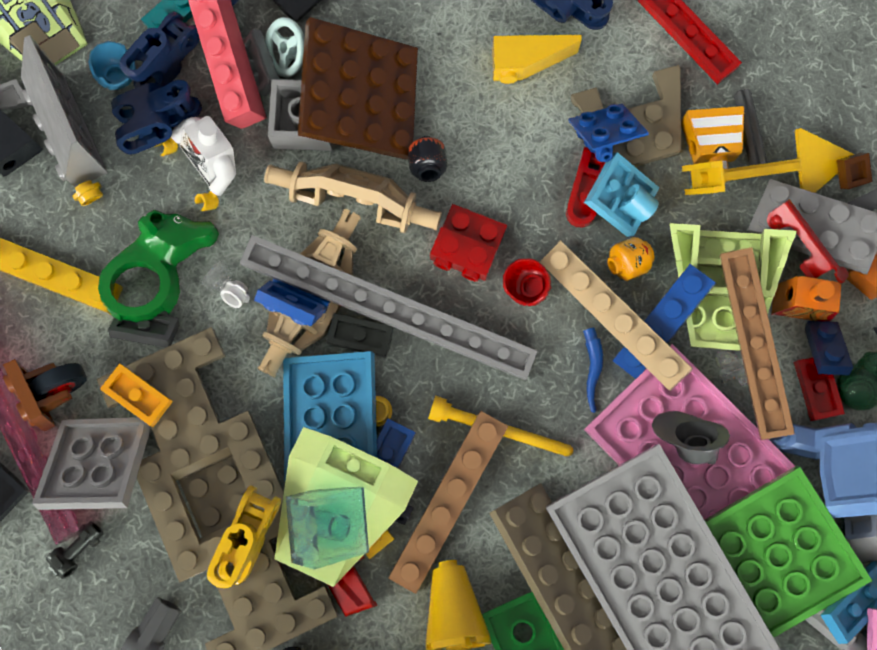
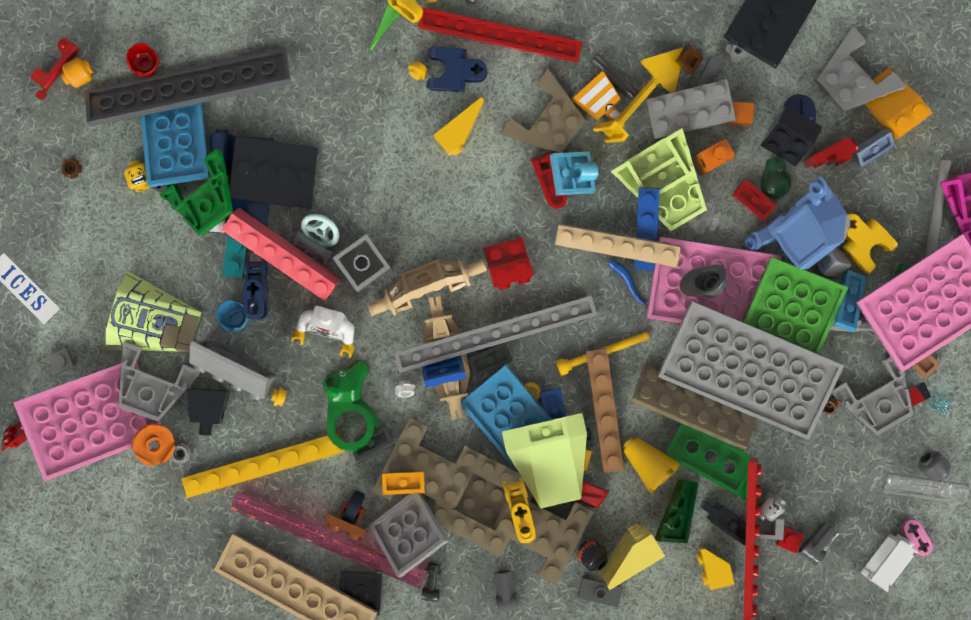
camera: 45 degrees left, 10 degrees up
(152, 114) = (280, 323): dark blue piece -> none
(327, 526) = (556, 472): clear light blue slope -> none
(357, 89) = (383, 225): reddish brown plate -> none
(427, 159) = (450, 233): black head -> none
(527, 282) = (558, 262): red hair -> none
(607, 128) = (537, 142): blue hinge -> none
(630, 258) = (603, 205): light orange head -> none
(756, 344) = (704, 206): medium nougat plate -> none
(821, 260) = (706, 132): red piece -> none
(828, 348) = (743, 175): dark blue plate -> none

